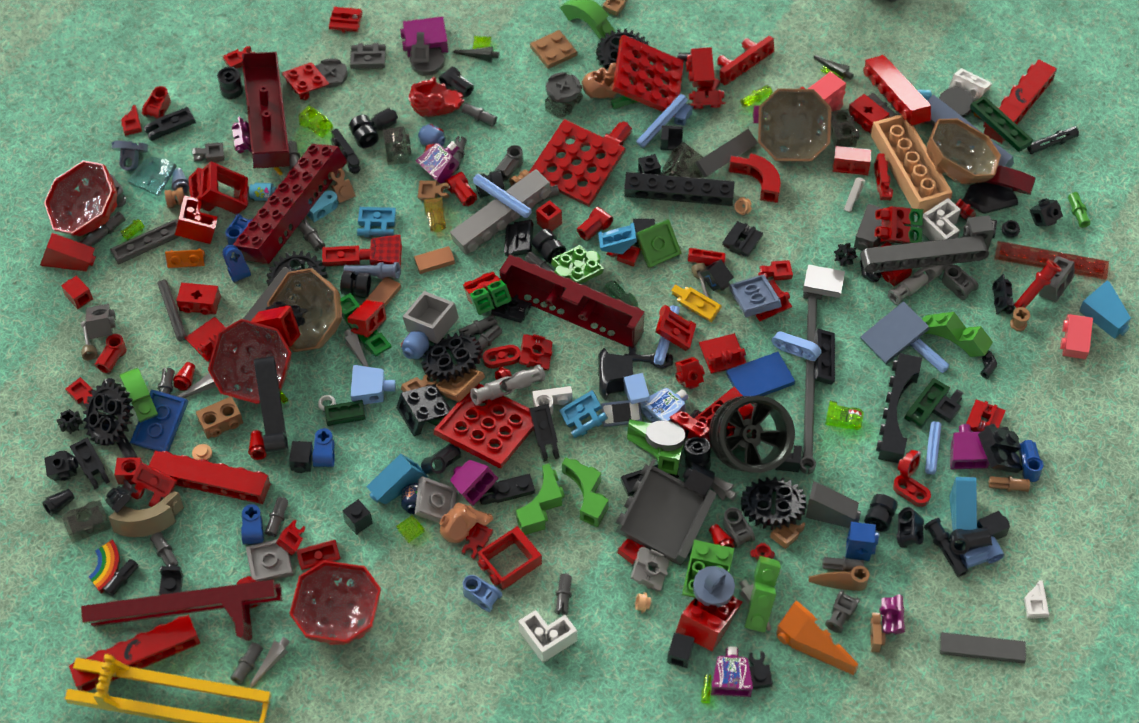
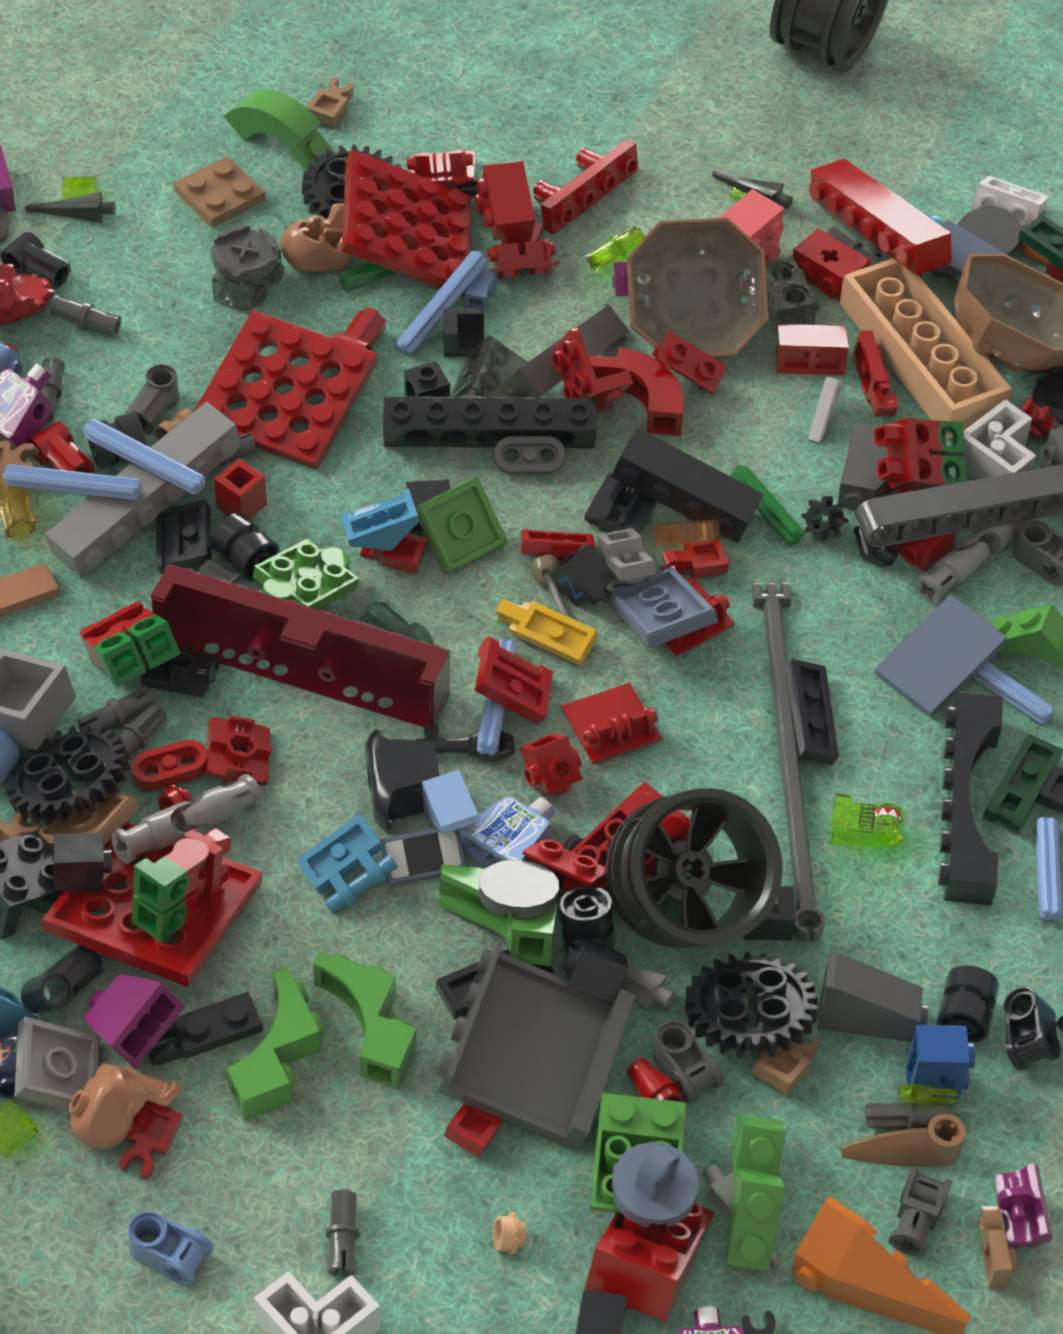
camera: 10 degrees left, 5 degrees down
(454, 402) = (80, 862): none -> black brick
(465, 206) = (72, 482): none -> light blue axle
(501, 418) = (179, 883): none -> hips
(523, 543) = (238, 1126): red window -> none
(544, 430) = (270, 902): black hinge -> none
(552, 397) = (274, 837): white plate -> none
(597, 220) = (335, 494): red piece -> none
(651, 579) = (503, 1177): light grey piece -> none
(671, 44) = (452, 167): none -> red hinge
(697, 207) = (528, 451): none -> dark grey plate
(727, 170) = (578, 375): none -> red bracket
(739, 206) = (608, 442): light nougat plate -> none
(740, 266) = (625, 556): none -> light grey brick
(761, 376) = (693, 757): blue tile -> none
(762, 548) = (741, 1098): red plate -> none
(773, 256) = (686, 531): none -> clear orange beam
(776, 231) = (686, 484): none -> black brick
(786, 164) = (689, 362): none -> red hinge
(796, 346) = (775, 699): light blue beam -> none
(817, 244) = (770, 508): none -> green axle
(823, 281) = (790, 571): tile -> none
(852, 555) = (923, 1094): none -> clear neon green pin
(909, 463) = (1009, 902): red plate -> none
(912, 490) = (1021, 955): red plate -> none

